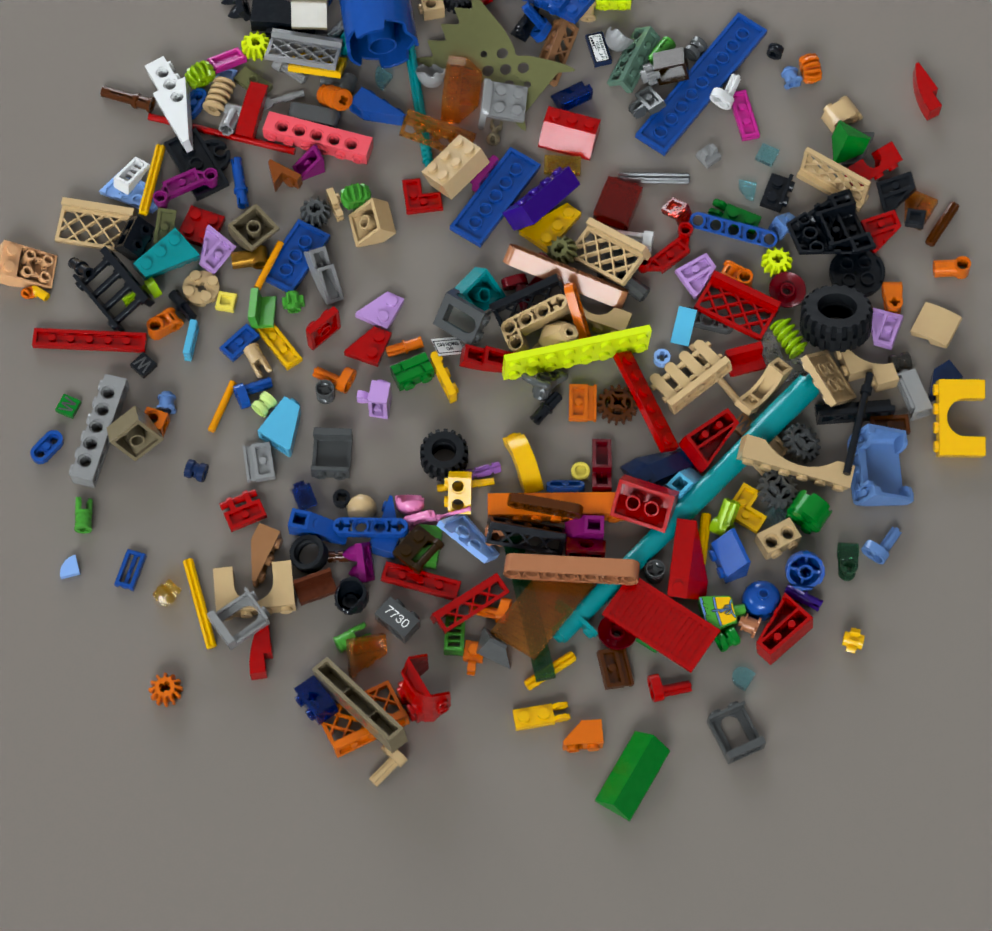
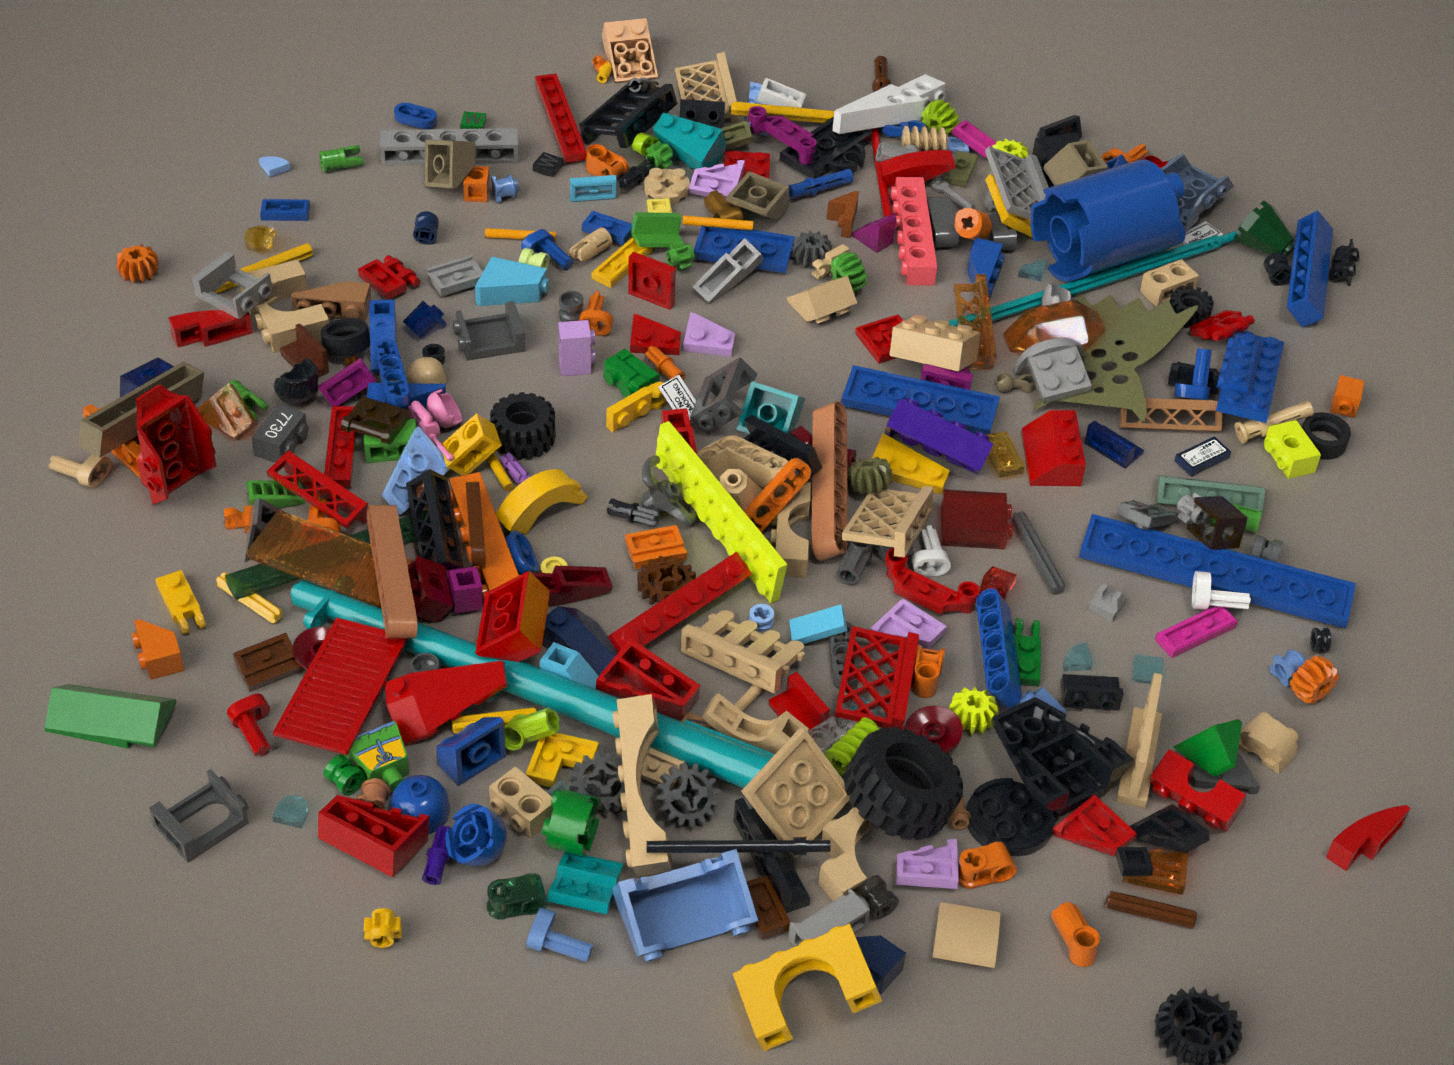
camera: 70 degrees right, 20 degrees down
(169, 282) = (660, 155): none -> bright green gear
(617, 40) = (1224, 464): light grey hair -> none
(846, 519) = (585, 882): none -> teal slope

